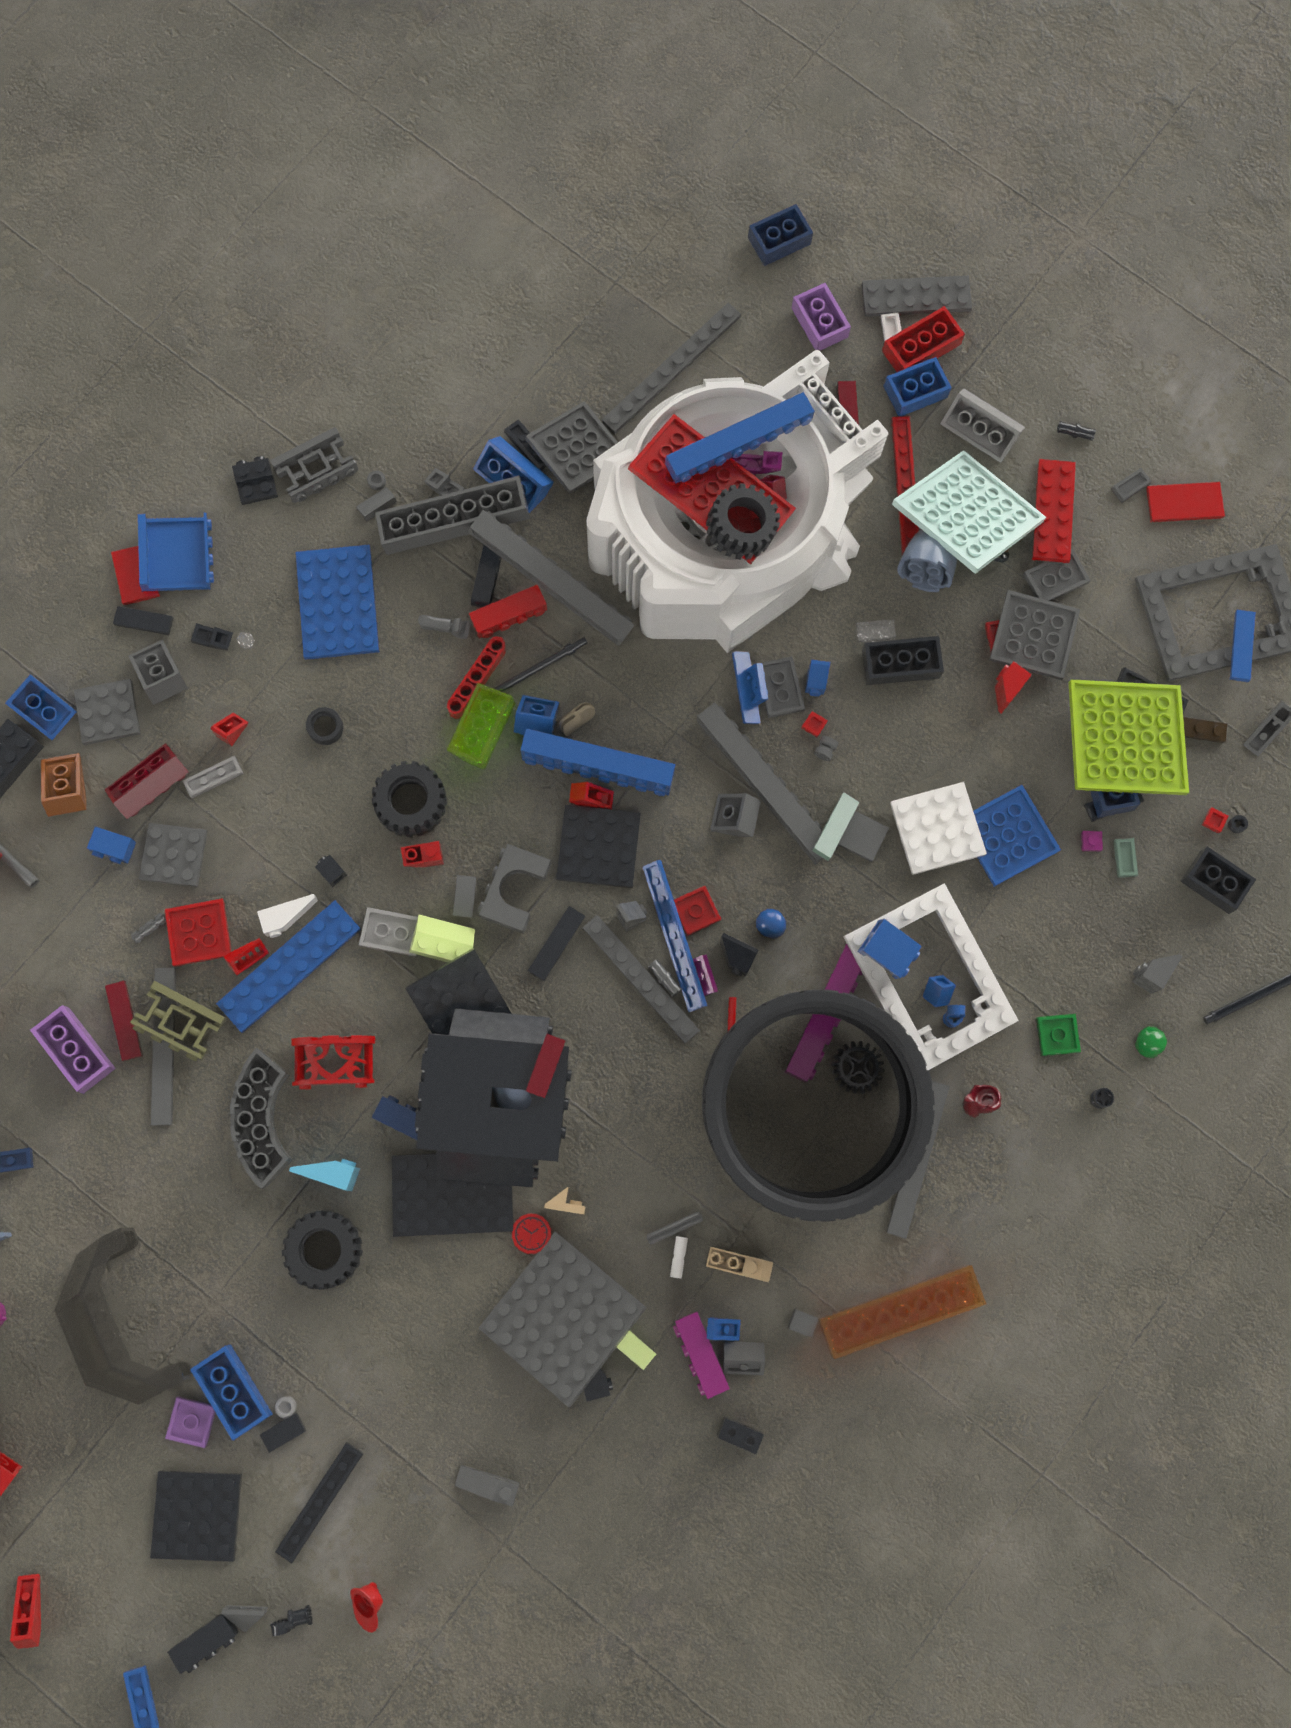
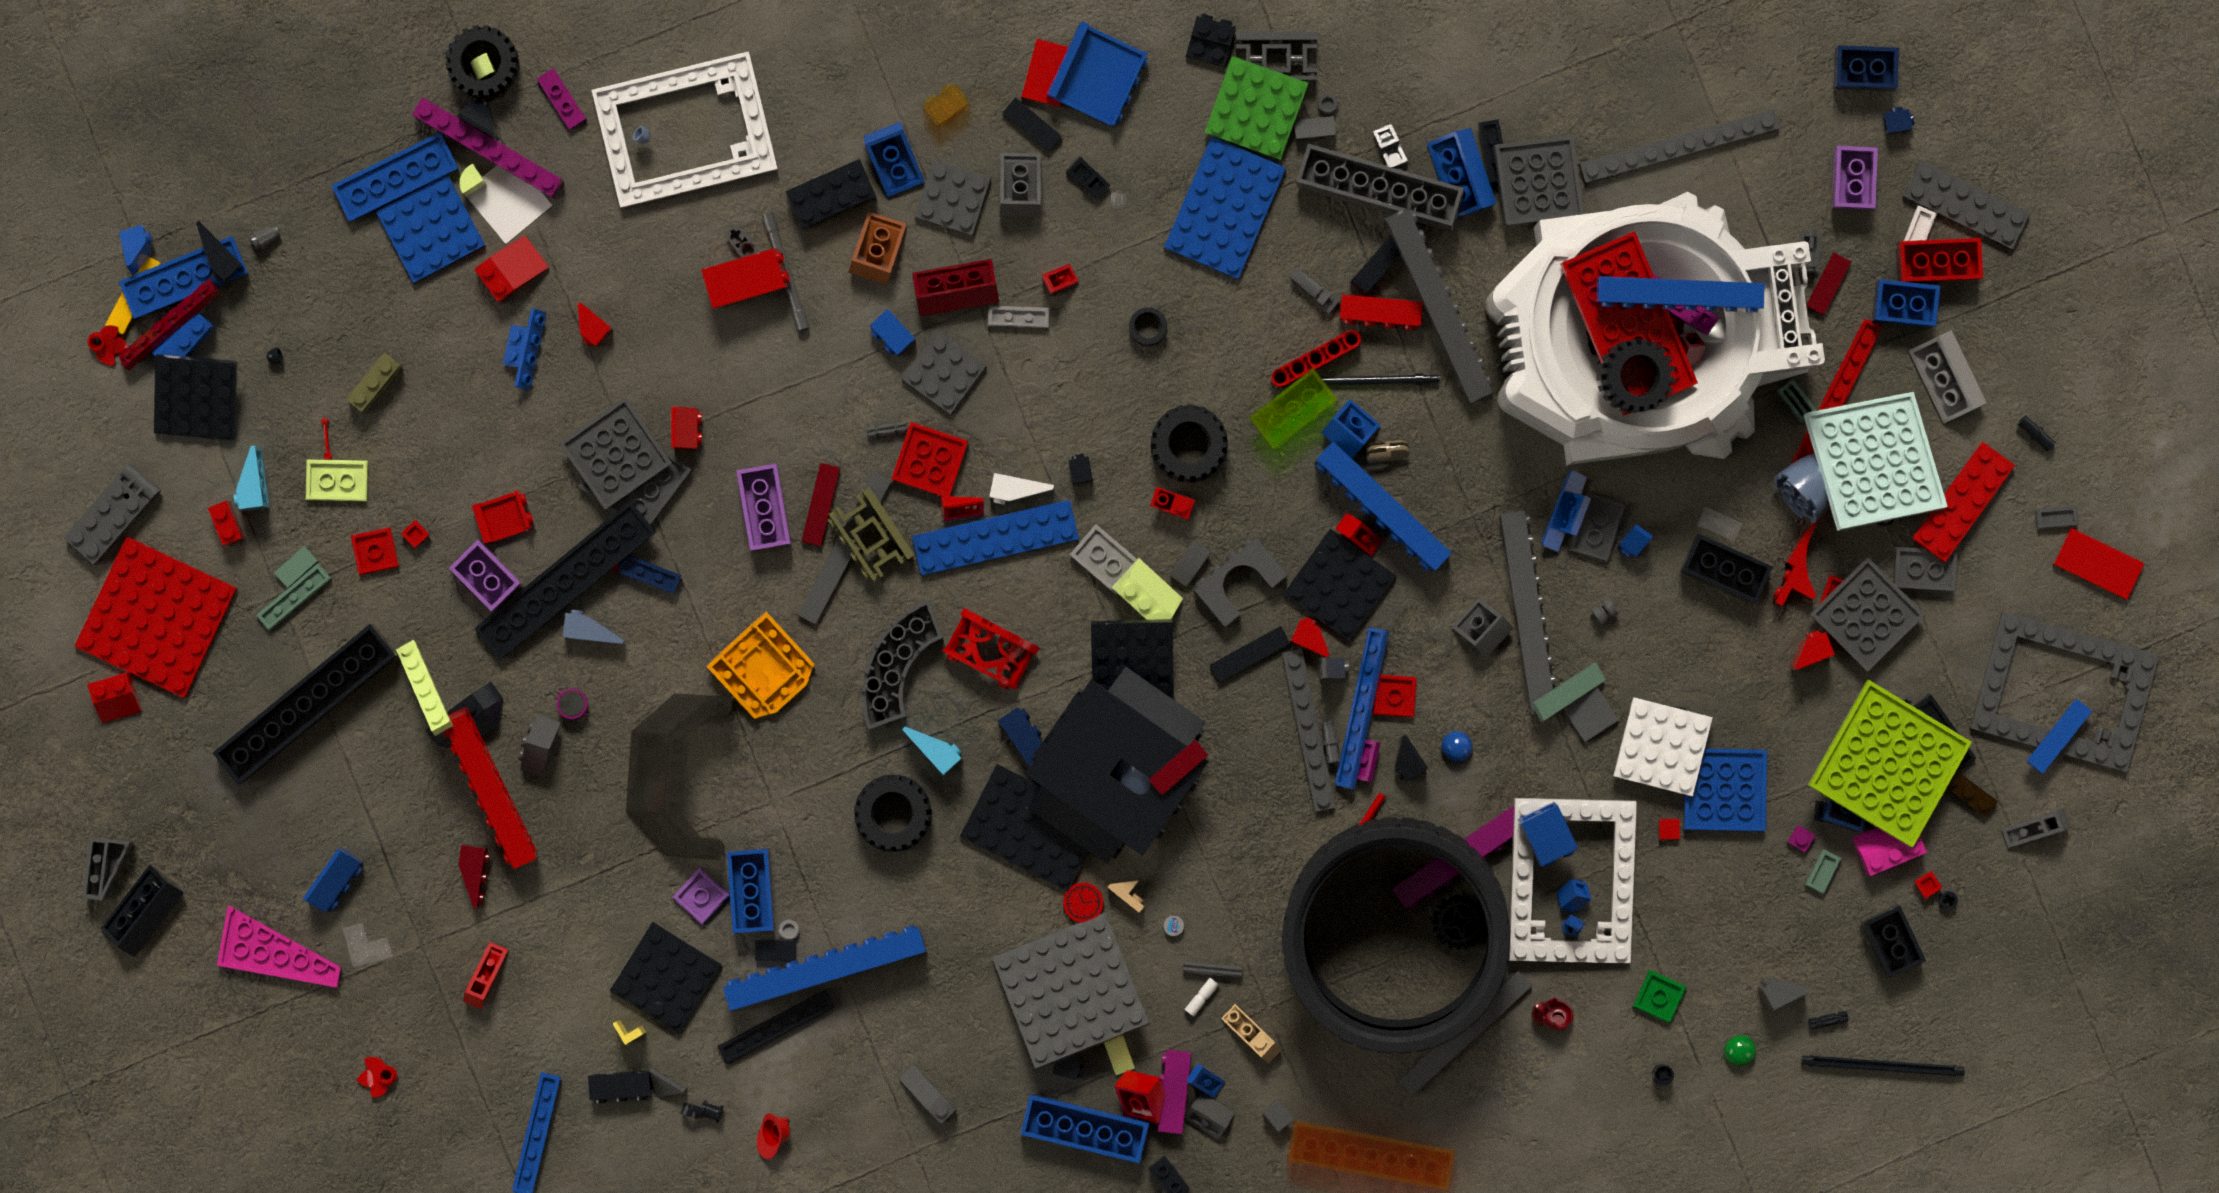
camera: 30 degrees right, 10 degrees up
(62, 641) = (945, 105): none -> clear yellow brick
(142, 1188) = (762, 667): none -> light orange wedge
(183, 1592) = (625, 1036): none -> light yellow panel
(318, 509) = (1256, 107): none -> bright green plate
(329, 1428) = (825, 968): none -> blue brick
(598, 901) = (1310, 637): none -> red slope
(620, 1209) = (1173, 925): none -> light grey tile
(641, 1434) = (1084, 1128): none -> blue brick
(675, 1376) = (1141, 1096): none -> red slope
(814, 724) = (1607, 582): red plate -> none
(827, 262) = (1897, 121): none -> dark blue brick
(874, 512) = (1786, 387): none -> sand green tile
(962, 637) = (1797, 577): none -> red slope
(982, 893) = (1669, 828): none -> red tile
(1163, 812) = (1881, 851): none -> dark pink slope
(1205, 975) = (1828, 1020): none -> black axle

